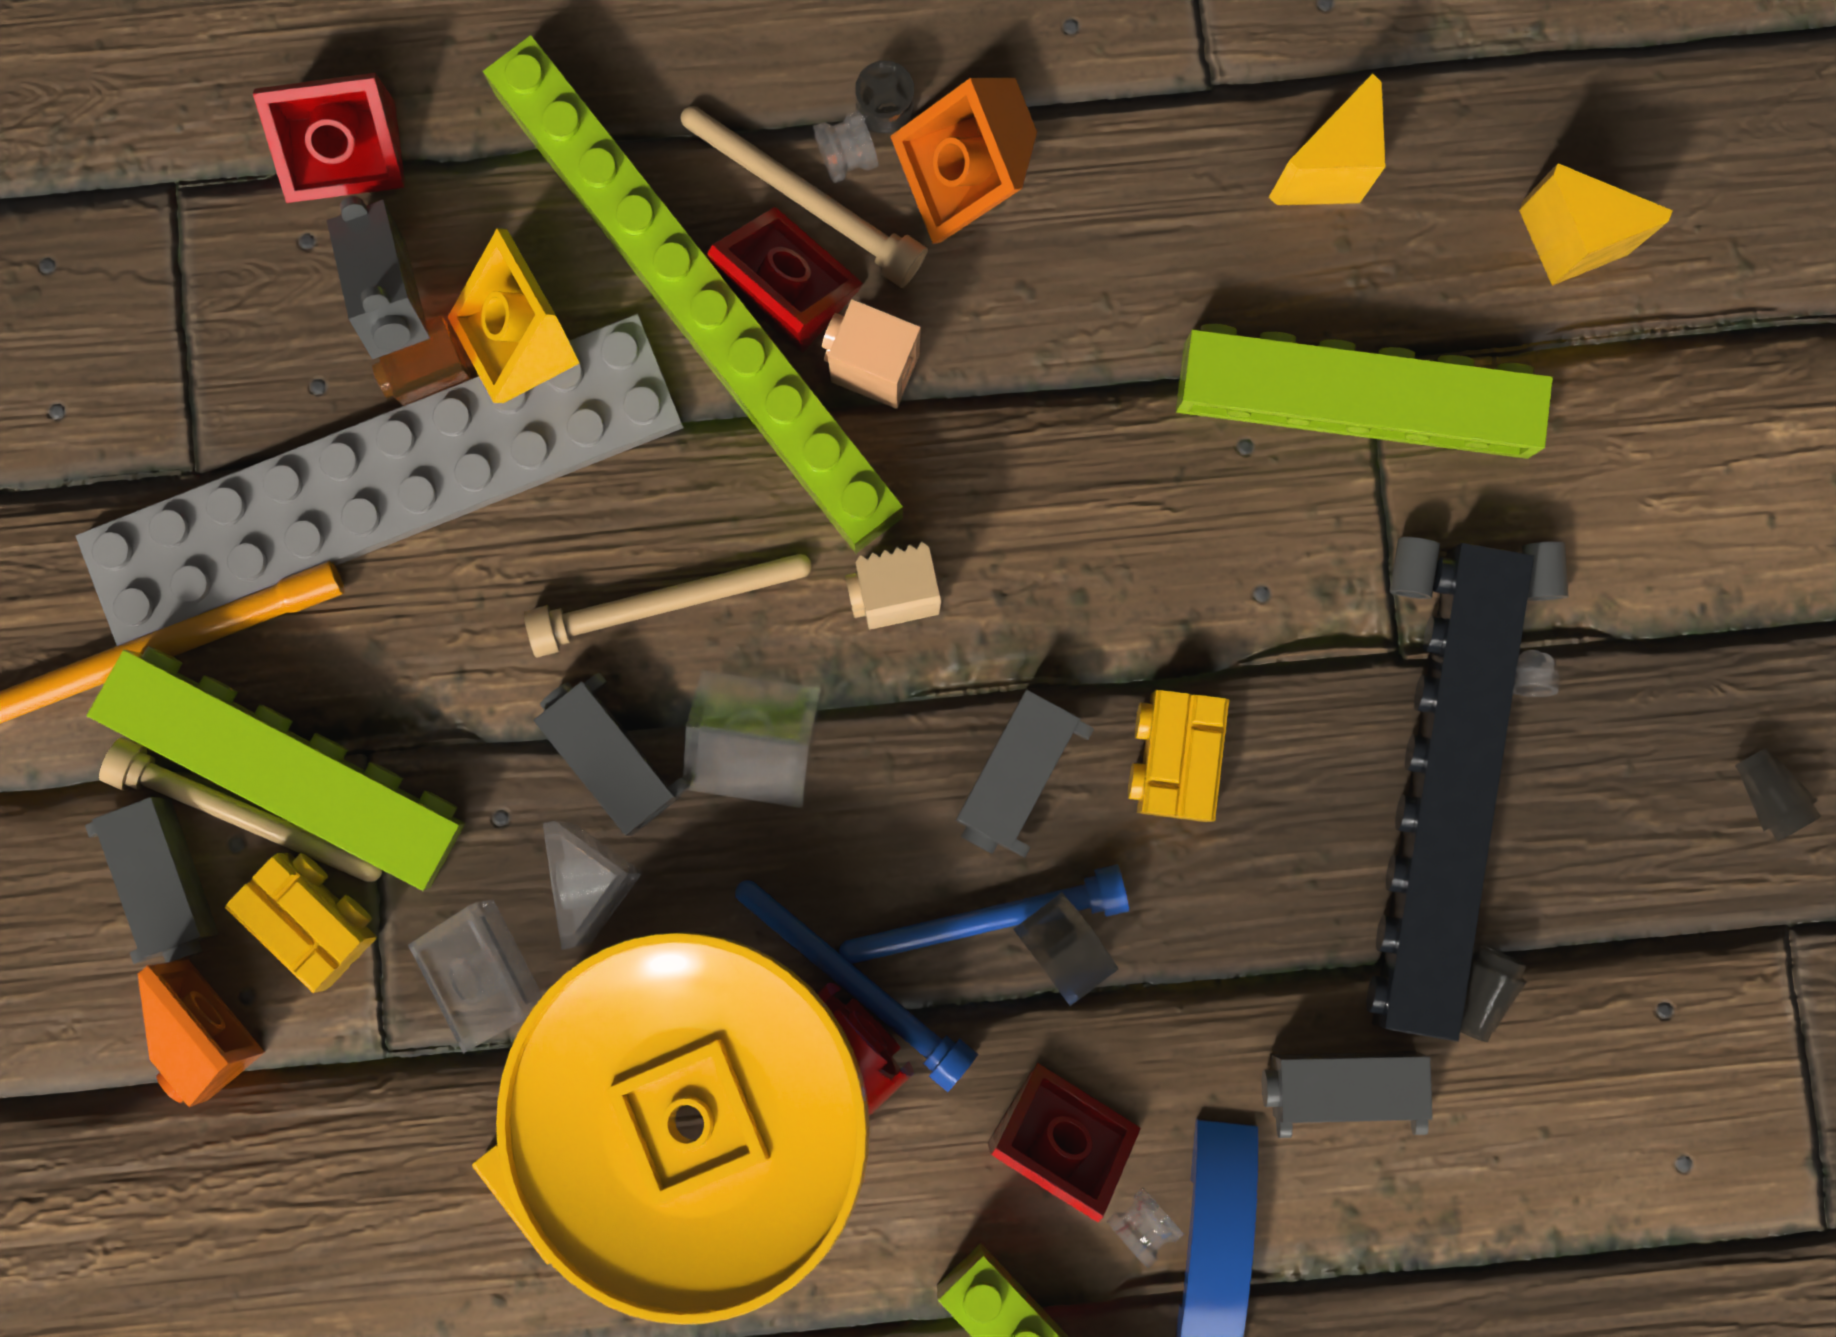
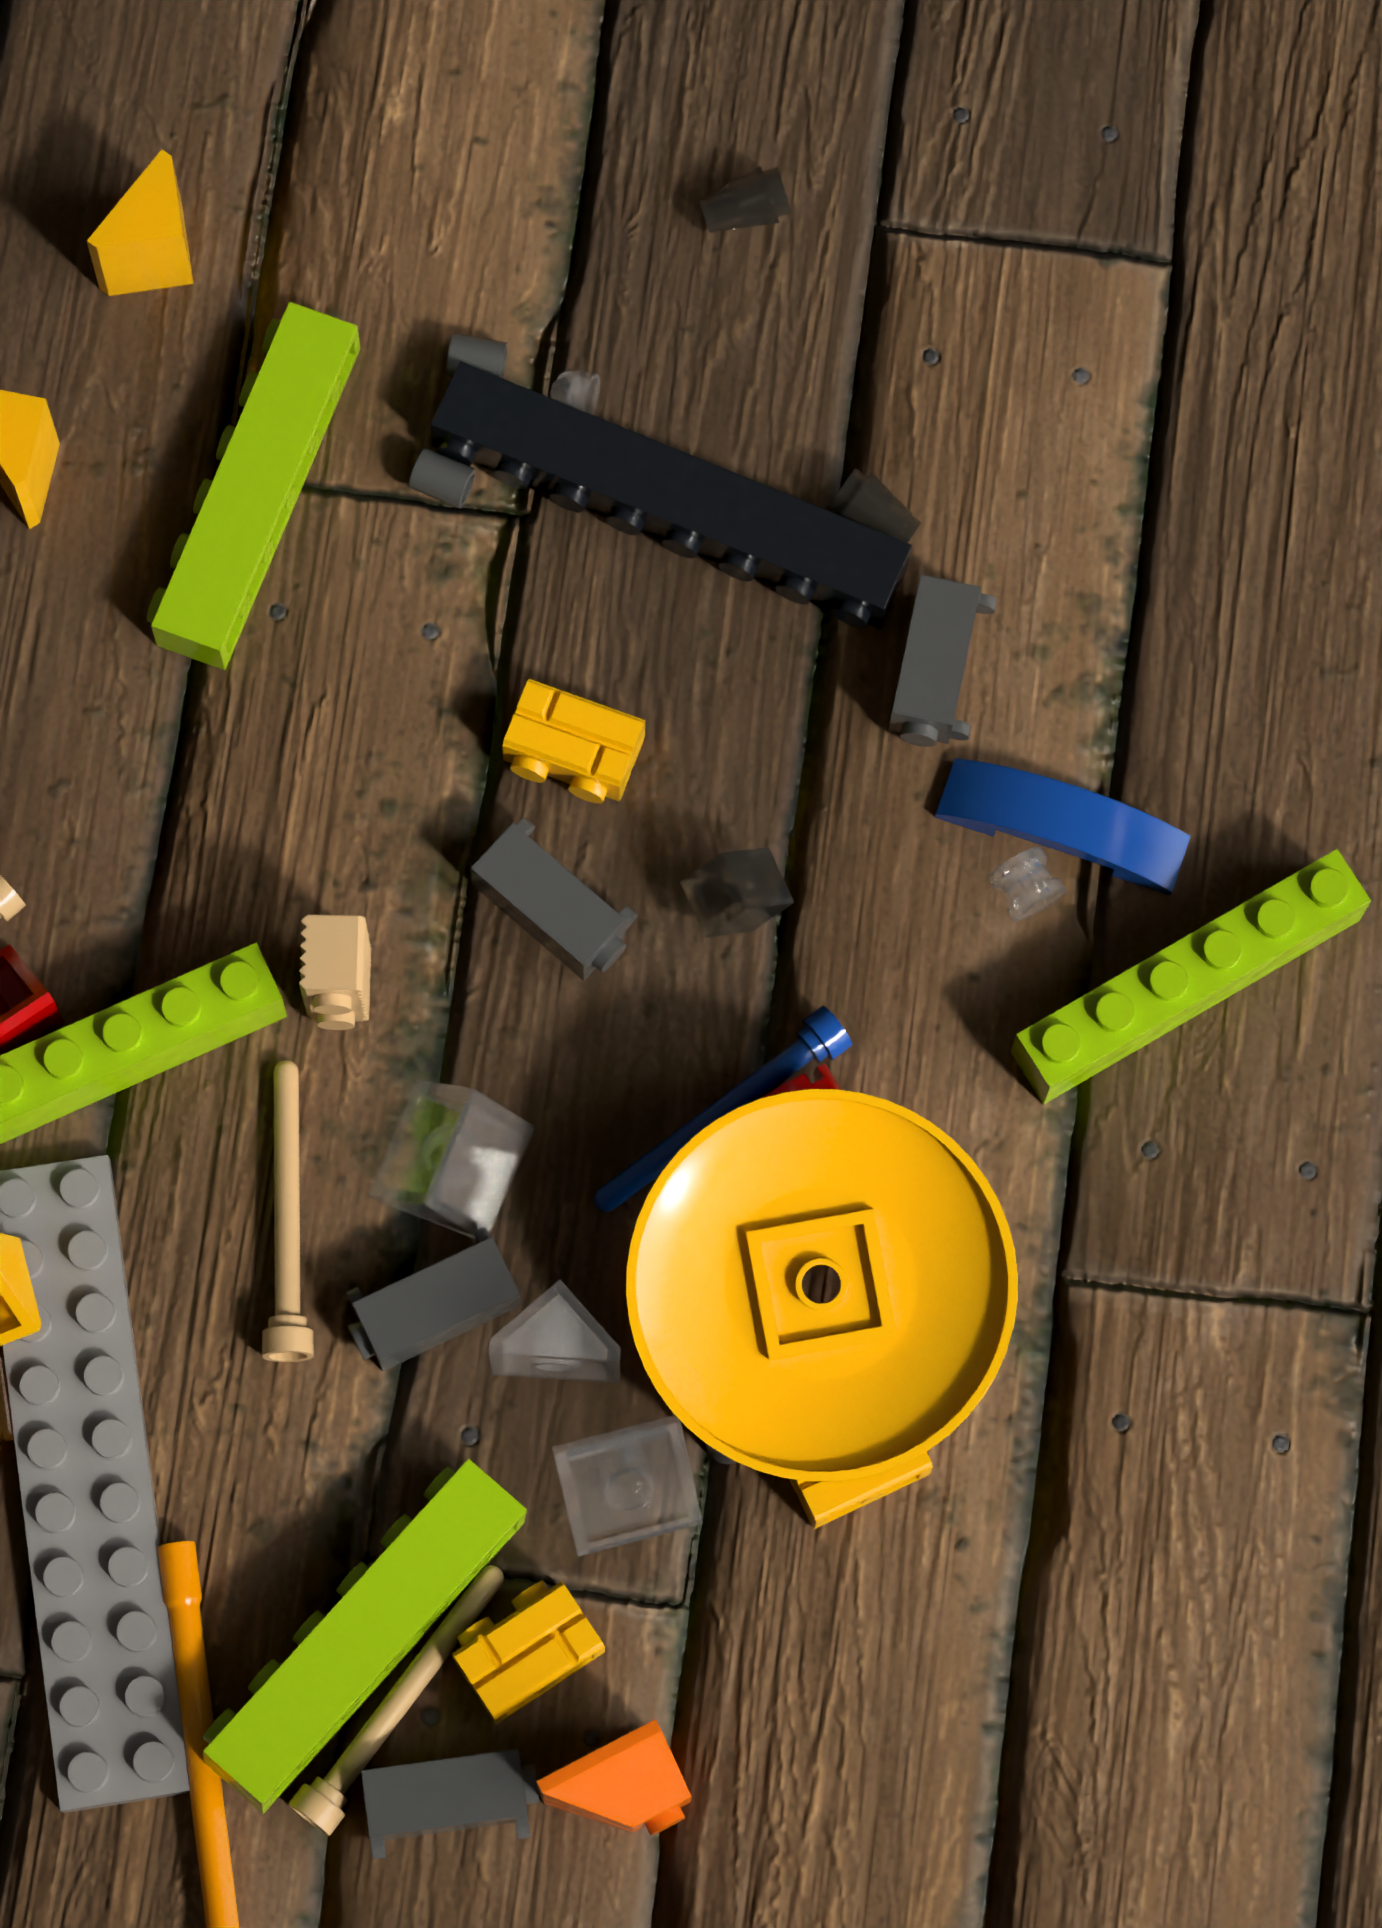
camera: 75 degrees left, 10 degrees down
(871, 352) = (92, 938): light nougat brick -> none
(1065, 1141) = (927, 943): red slope -> none
(1099, 893) = (690, 849): blue piece -> none

